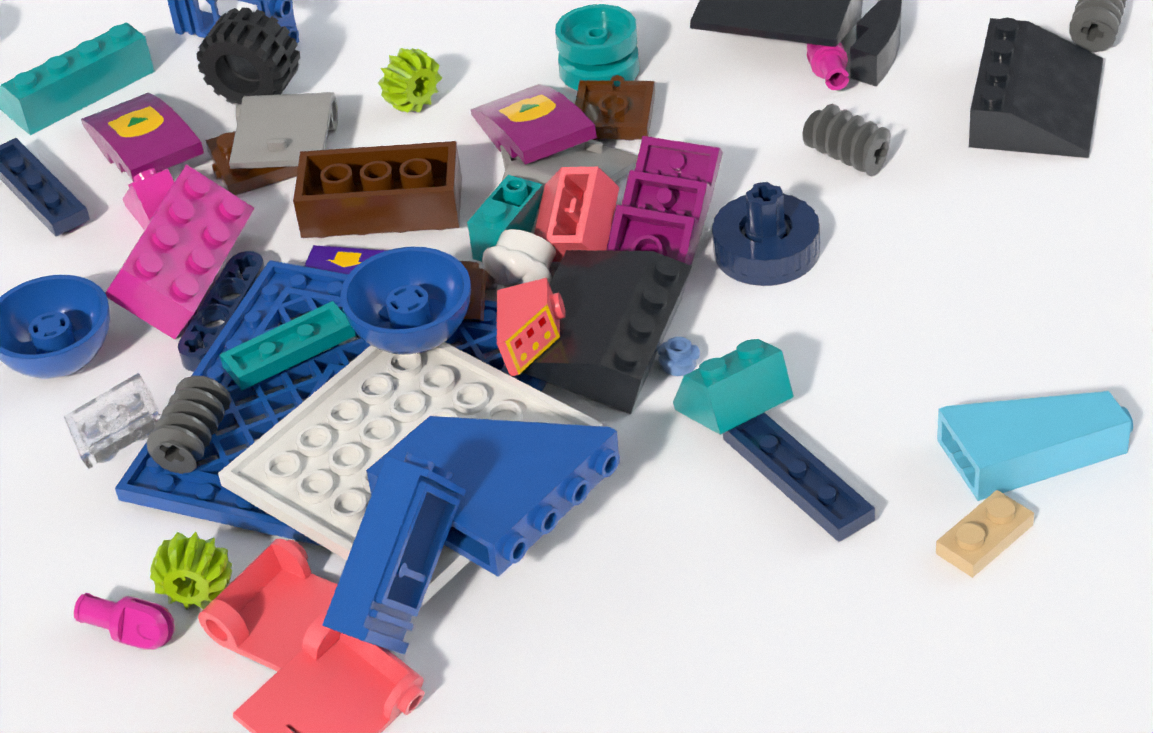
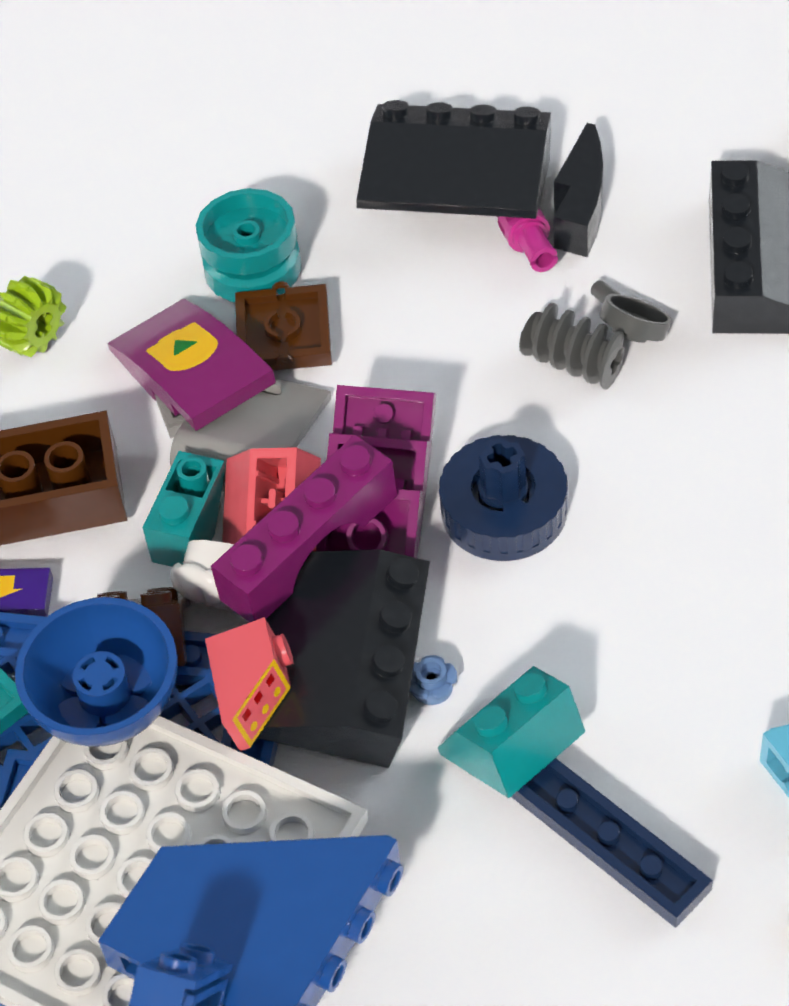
camera: 10 degrees left, 10 degrees up
(558, 243) = (265, 562): none -> magenta arch
(902, 126) = (631, 315): none -> dark grey piece

